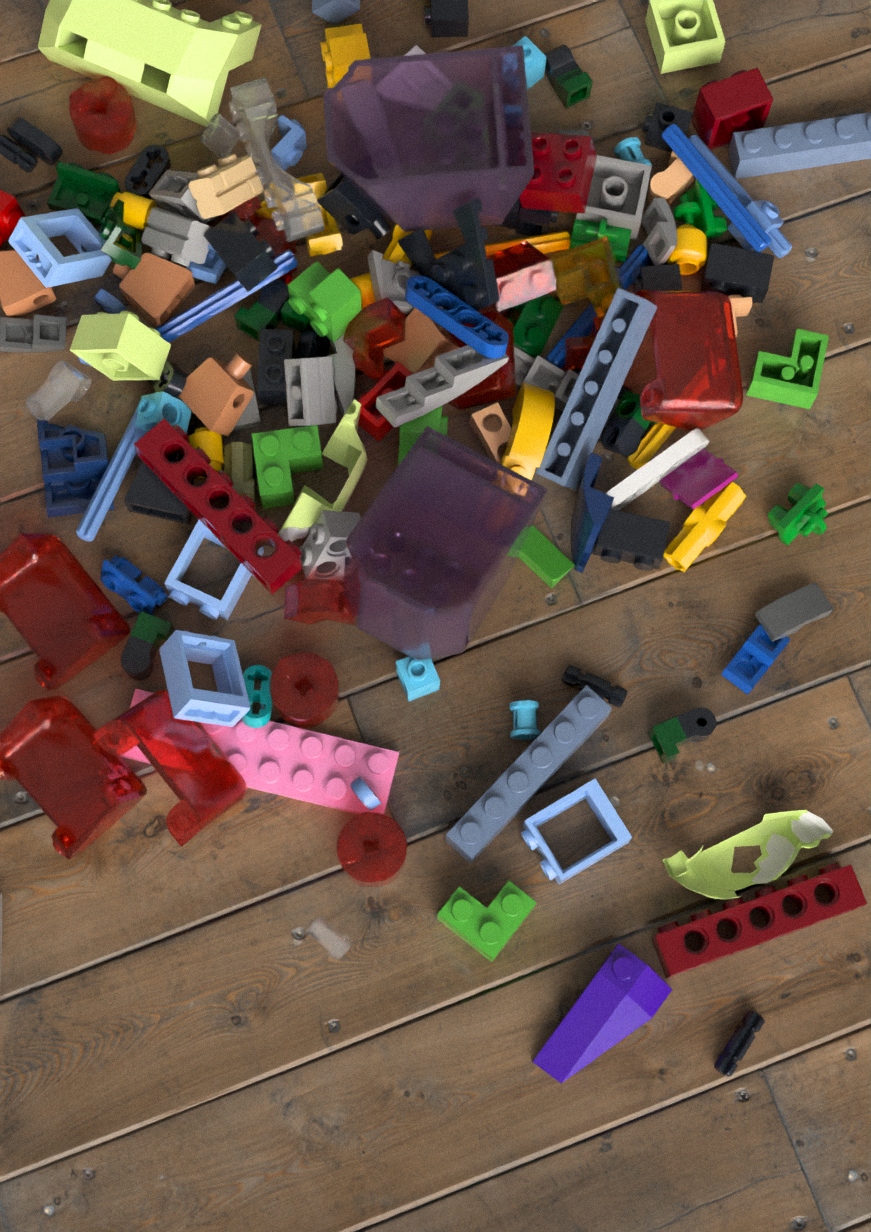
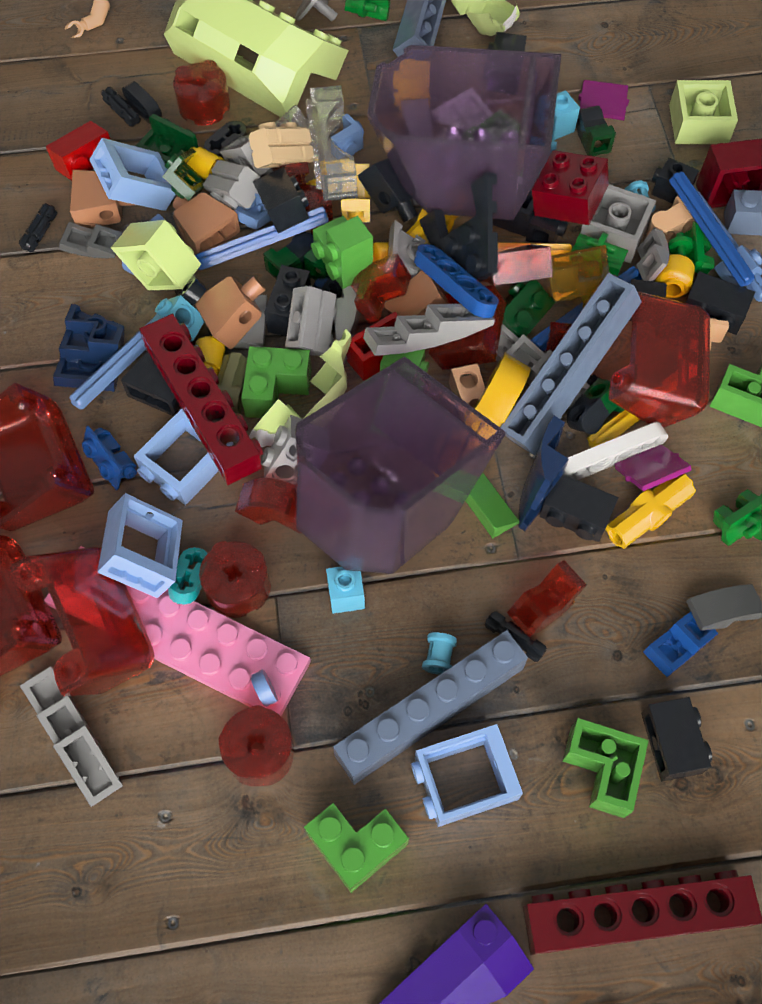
camera: 15 degrees right, 10 degrees down
(61, 387) = (101, 282): clear piece -> none
(143, 645) = (92, 514): leg -> none
(187, 879) = (72, 737): none -> light grey slope
(329, 938) = (192, 827): clear pin -> none
(569, 25) = (609, 96): none -> magenta piece
(618, 644) = (548, 600): none -> clear red brick
(690, 726) = (594, 696): leg -> none
(712, 786) = (614, 757): none -> bright green brick
(766, 753) = (676, 739): none -> black brick
(779, 839) = (677, 831): yellowish green animal -> none

